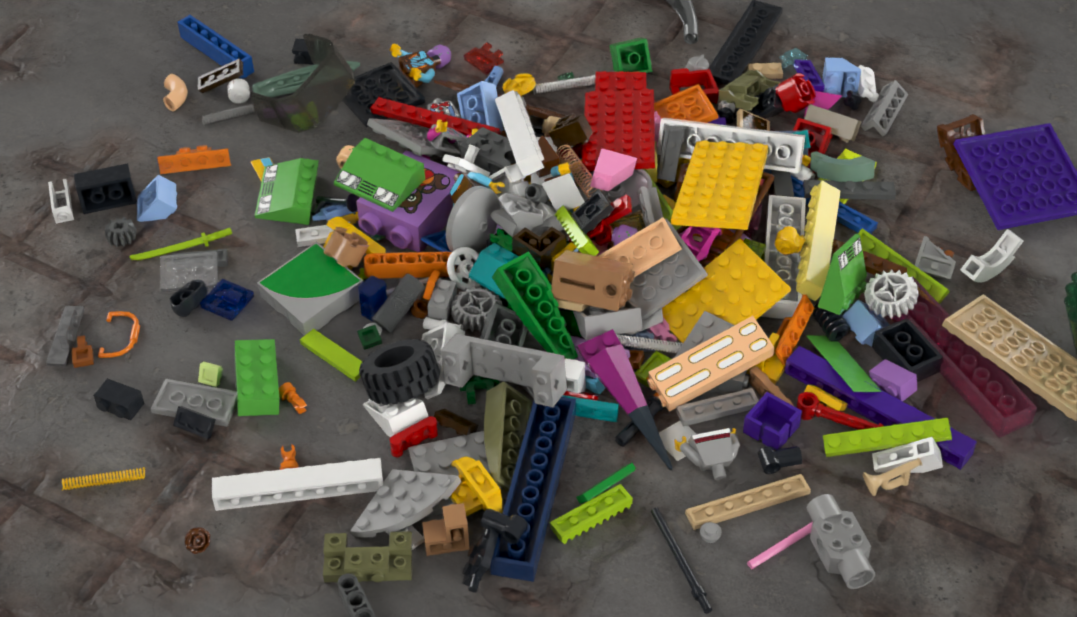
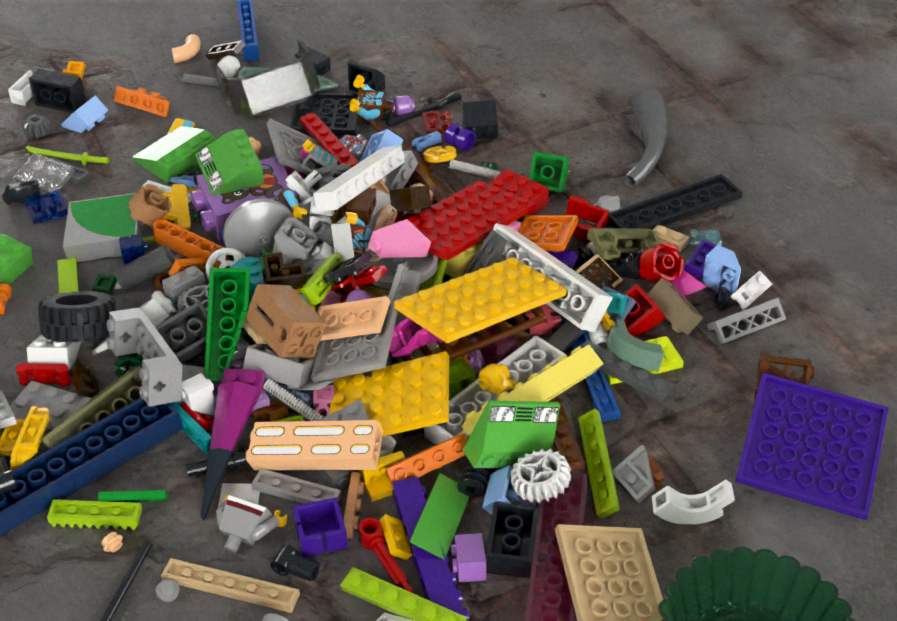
camera: 35 degrees right, 5 degrees down
(88, 161) = (75, 68): none -> light orange bracket
(378, 47) = (371, 76): none -> black slope
(461, 47) = (432, 105): none -> black piece
(520, 62) = (460, 137): none -> dark purple wheel
(523, 39) = (481, 118): none -> black slope
(630, 525) = (112, 542): none -> light nougat plate

